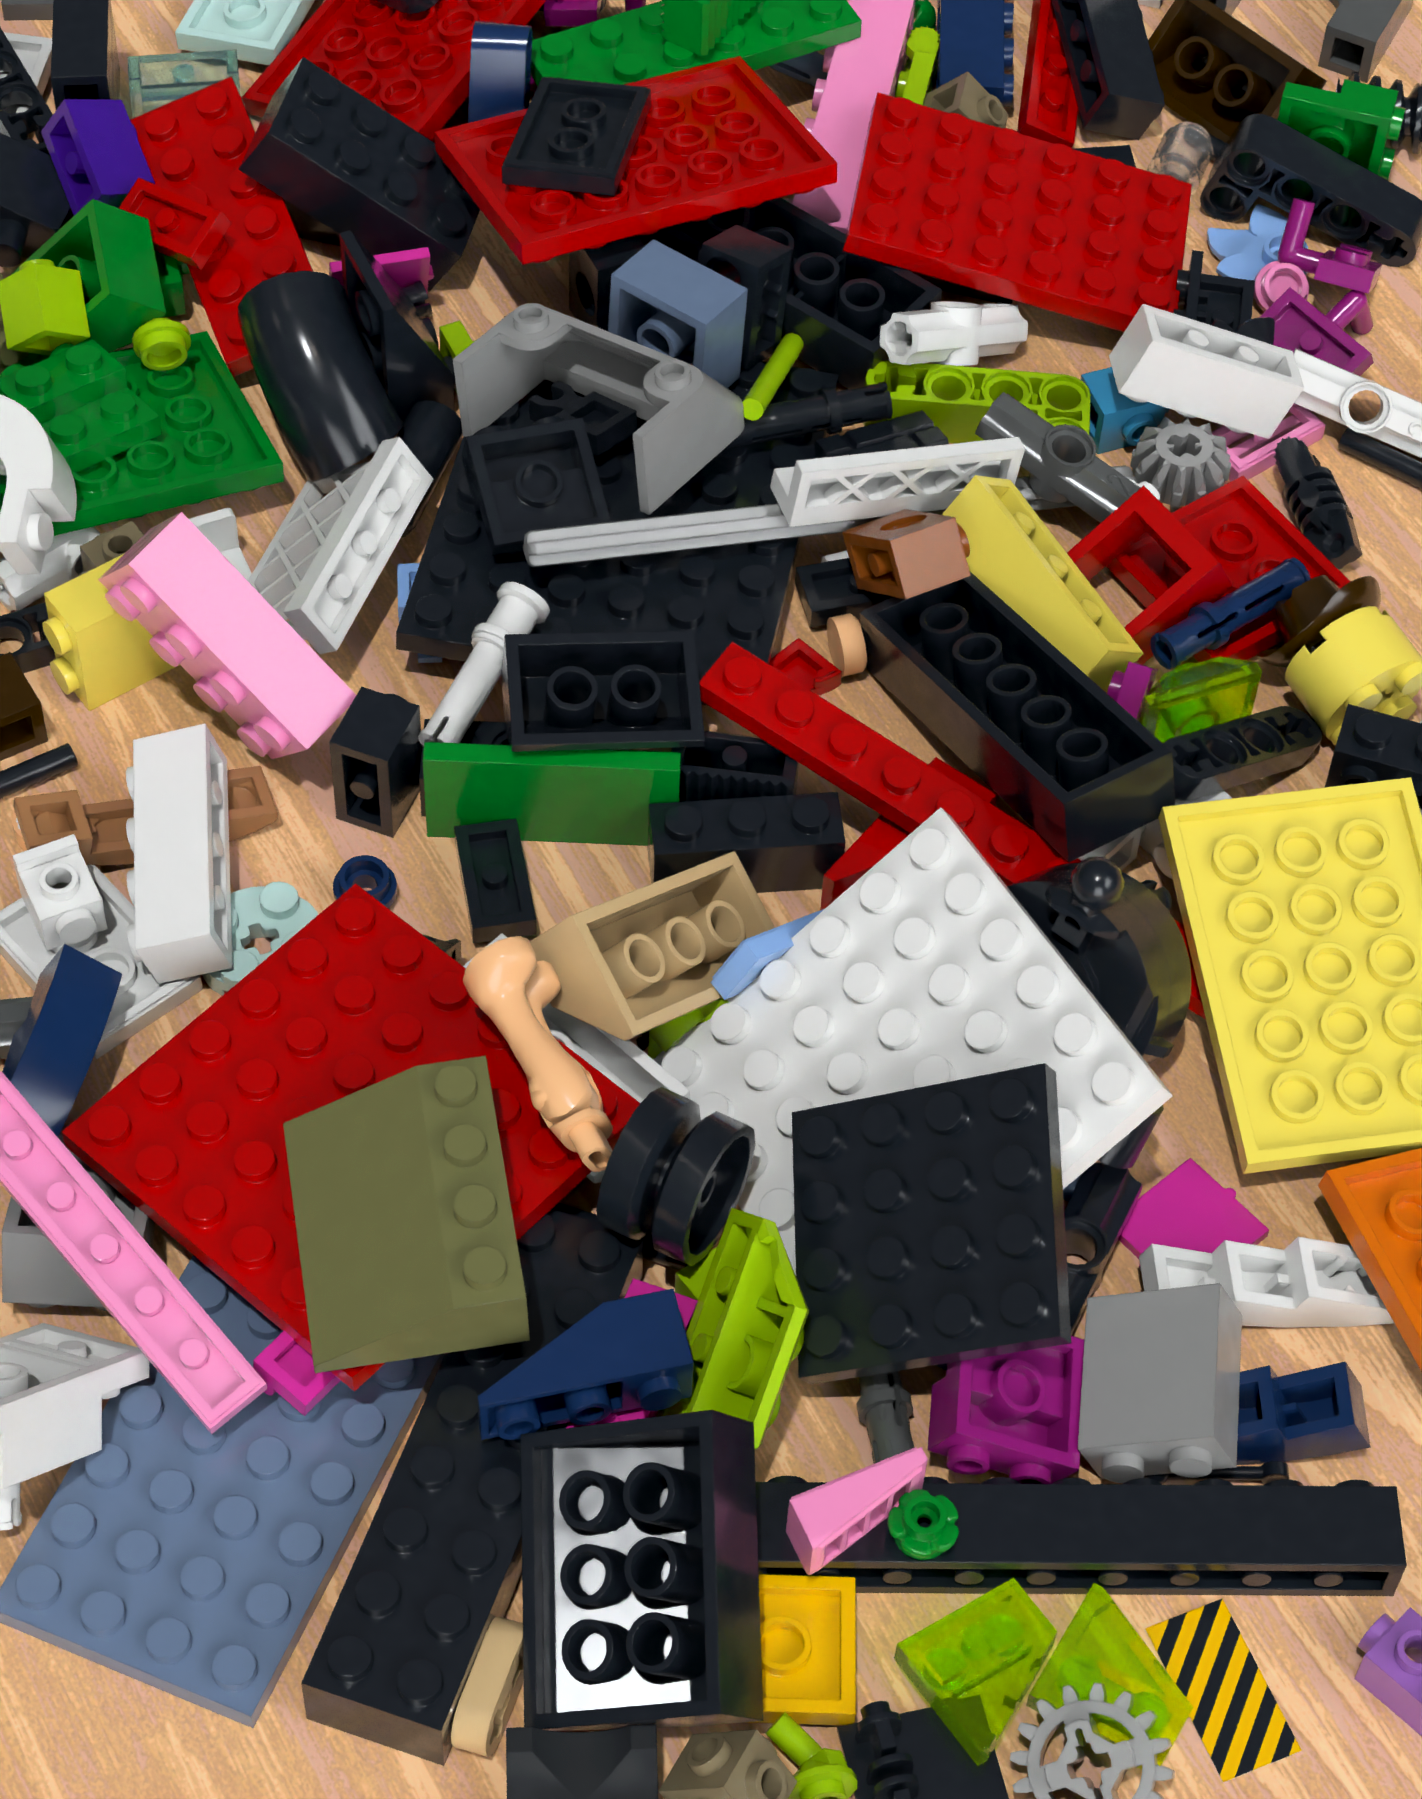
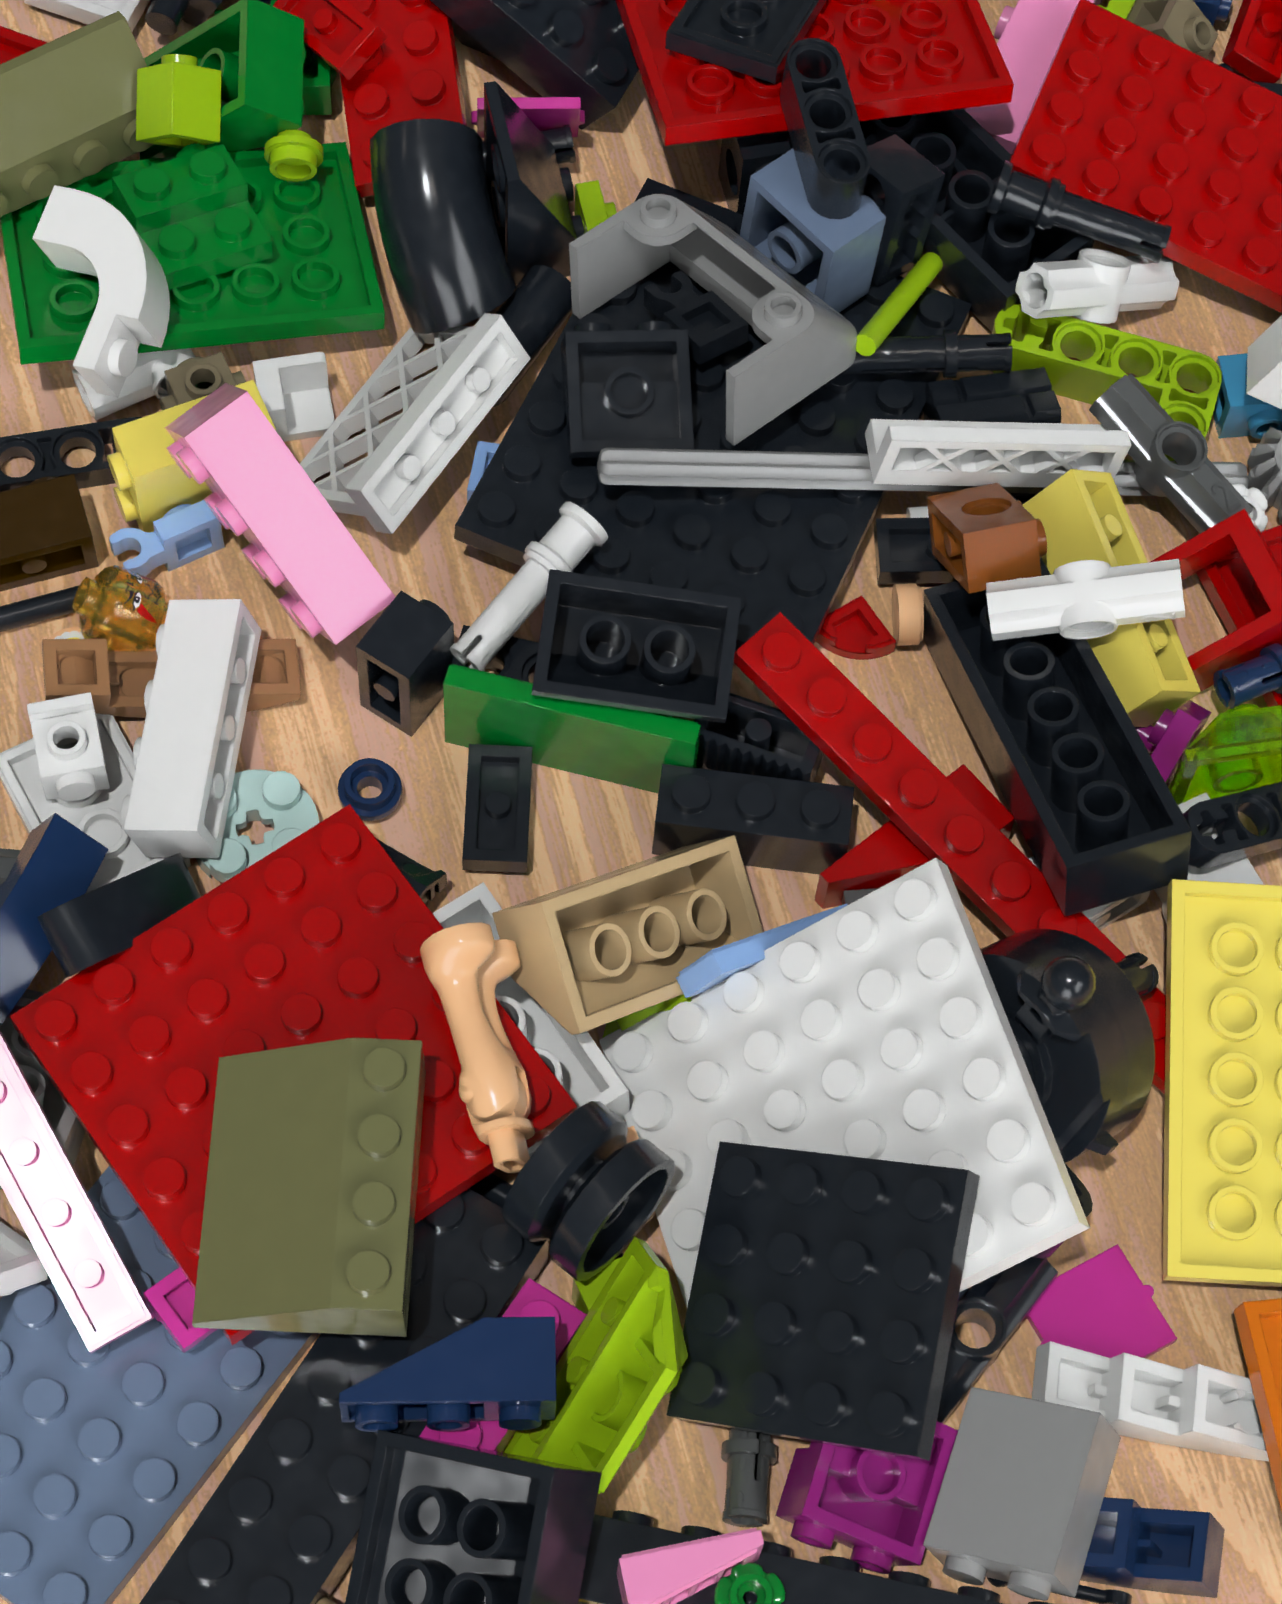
camera: 10 degrees right, 10 degrees up
(84, 762) = (121, 609): none -> clear yellow head
(124, 699) = (177, 539): none -> light blue plate
(141, 1024) = (116, 913): none -> black beam
(672, 218) = (824, 128): none -> black beam
(895, 265) = (1049, 205): none -> black pin
(1018, 581) = (1085, 599): none -> white piece

